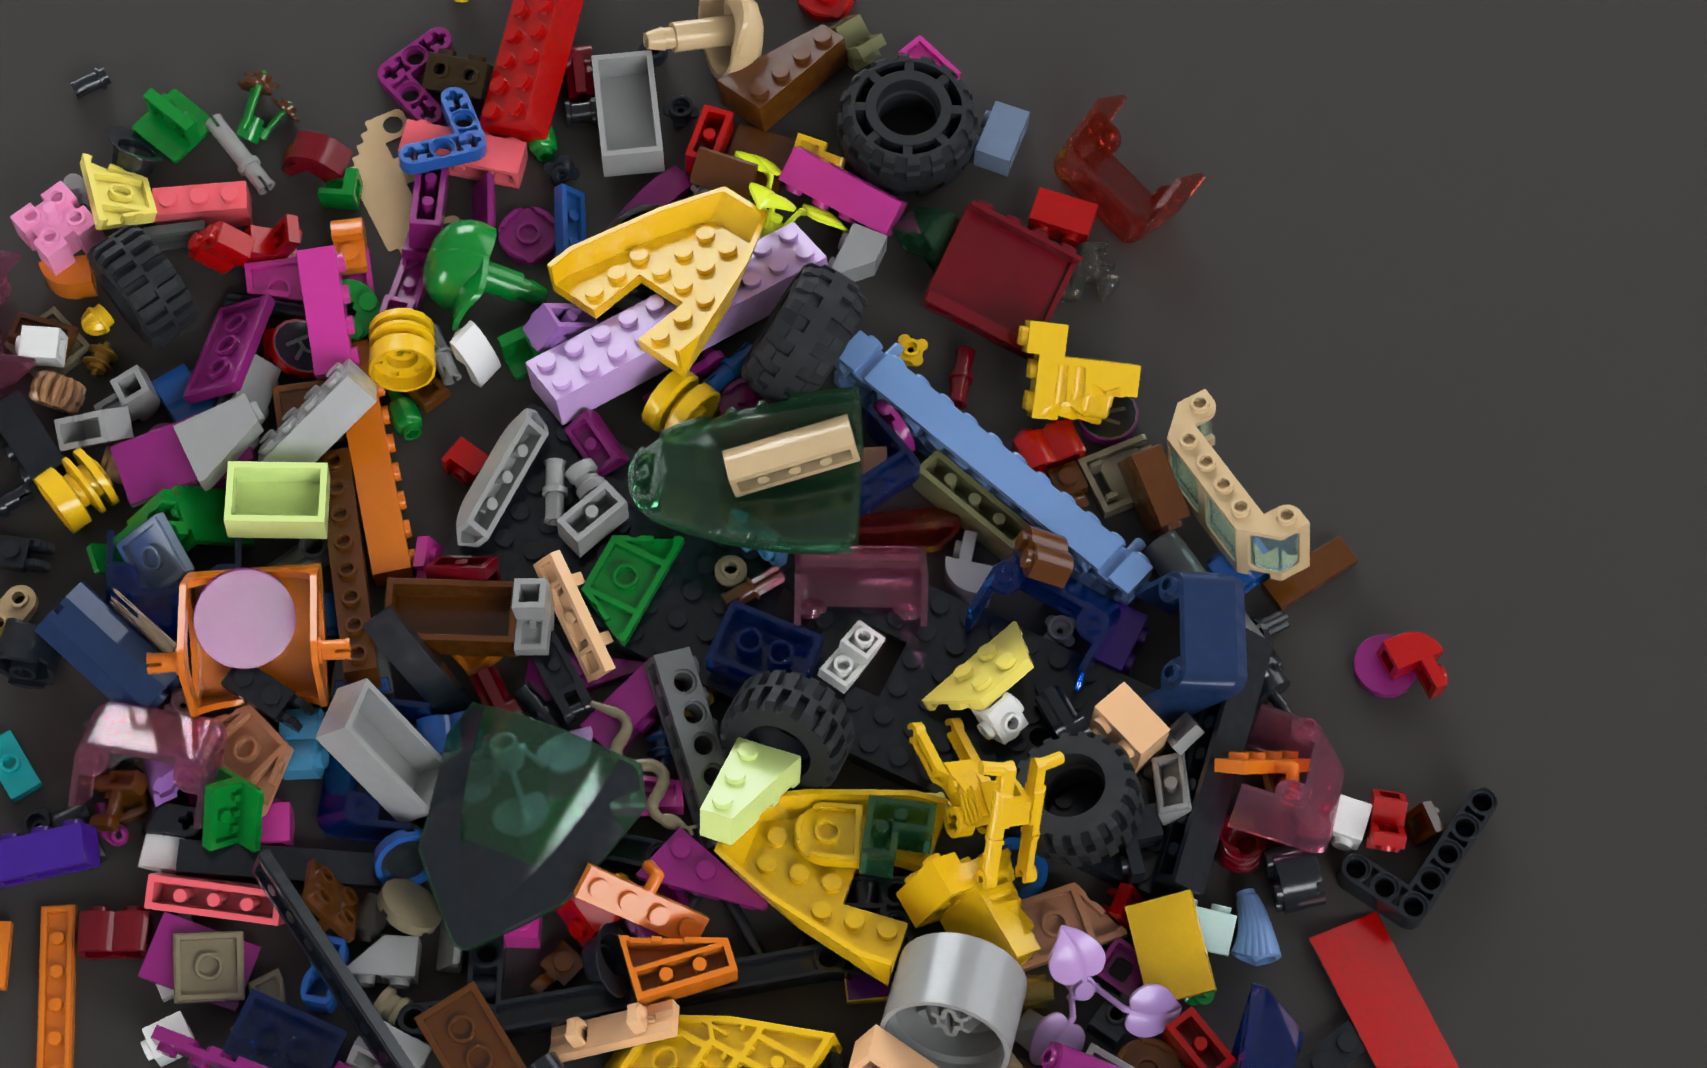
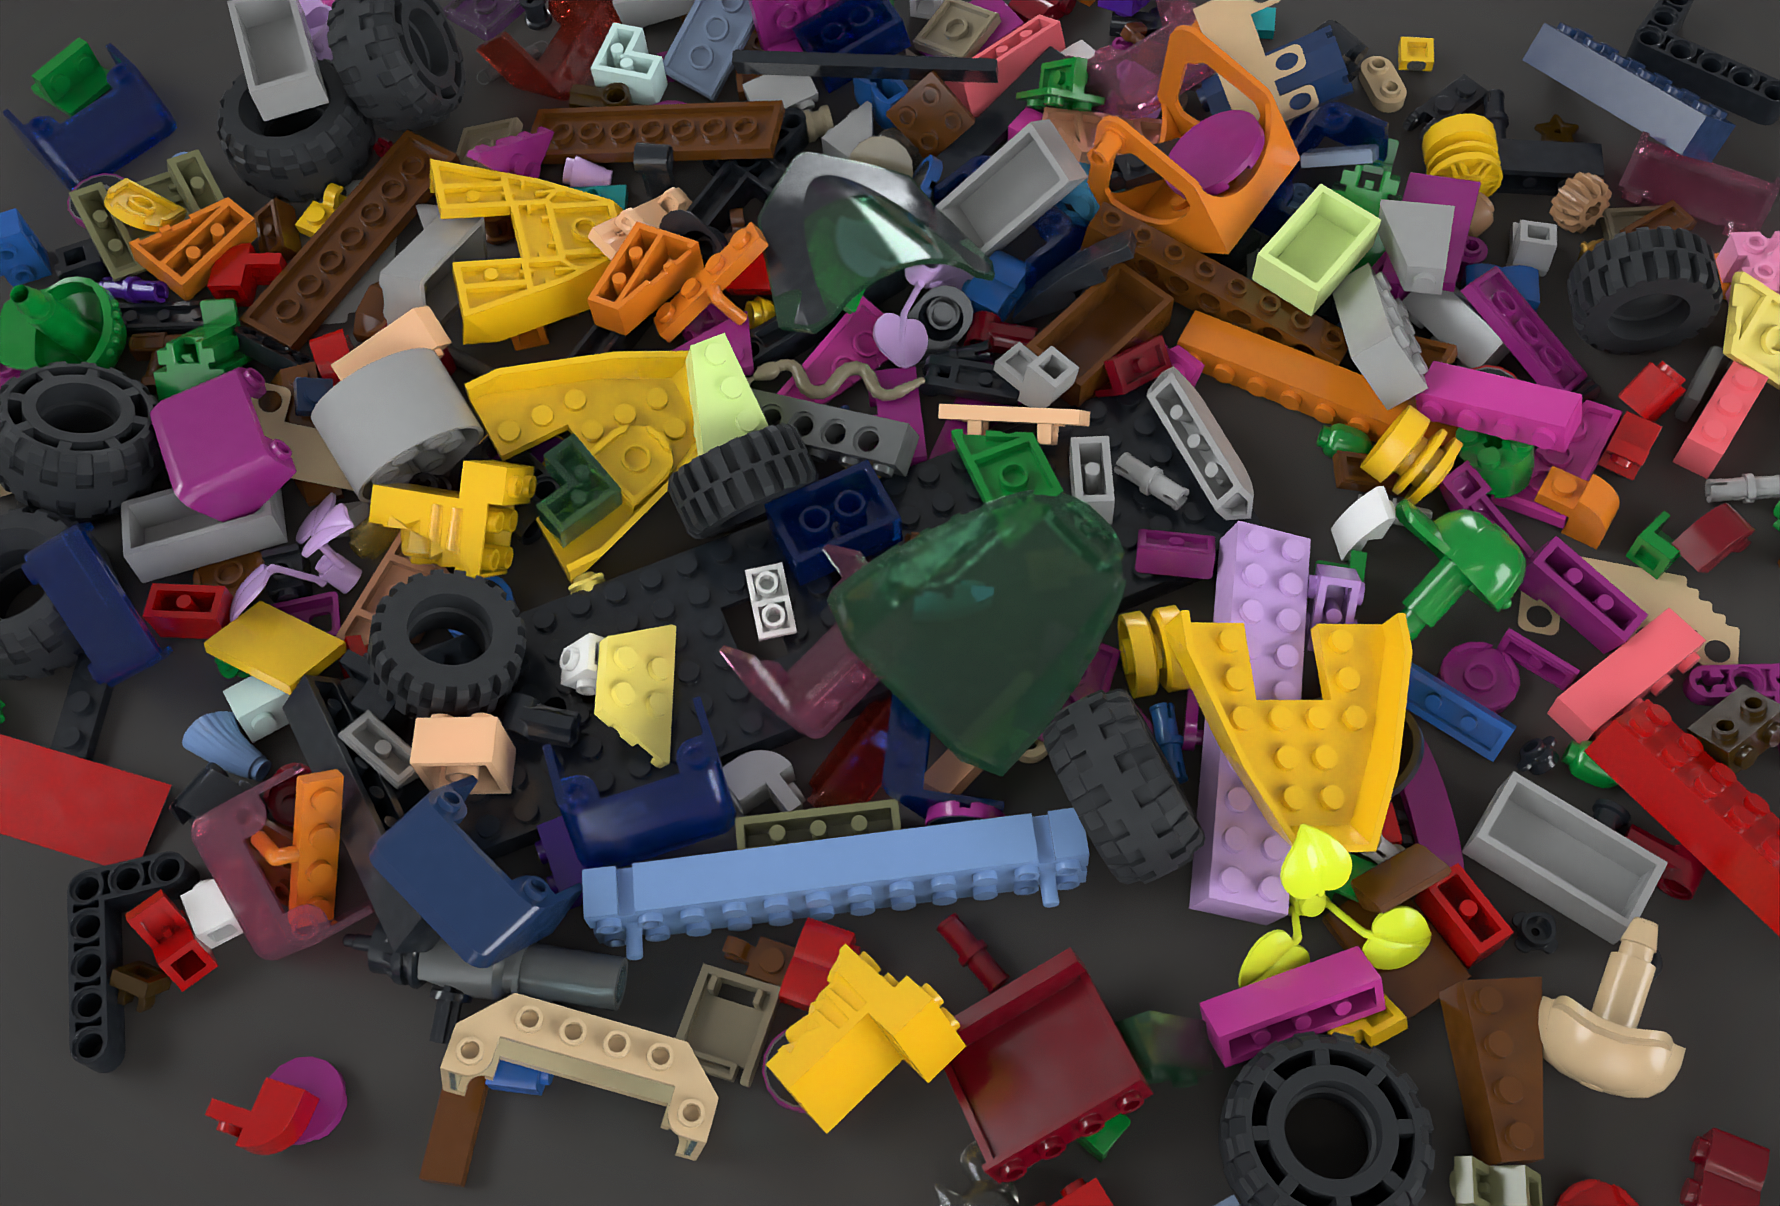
camera: 140 degrees right, 5 degrees down
(44, 344) = (1636, 204): white brick -> none
(94, 428) = (1514, 196): light grey brick -> none
(459, 137) = (1641, 664): blue beam -> none
(463, 461) = (1258, 454): red brick -> none
(584, 476) = (1130, 508): light grey wheel -> none
(790, 455) = (999, 666): tan brick -> none
(859, 253) = (1201, 964): light grey slope -> none
(919, 346) = (1044, 942): yellow plate -> none
(987, 803) = (521, 564): yellow piece -> none
(1044, 556) = (681, 806): reddish brown brick -> none
(1154, 490) = (666, 1005): reddish brown brick -> none
(1184, 733) = (405, 792): light grey tile -> none

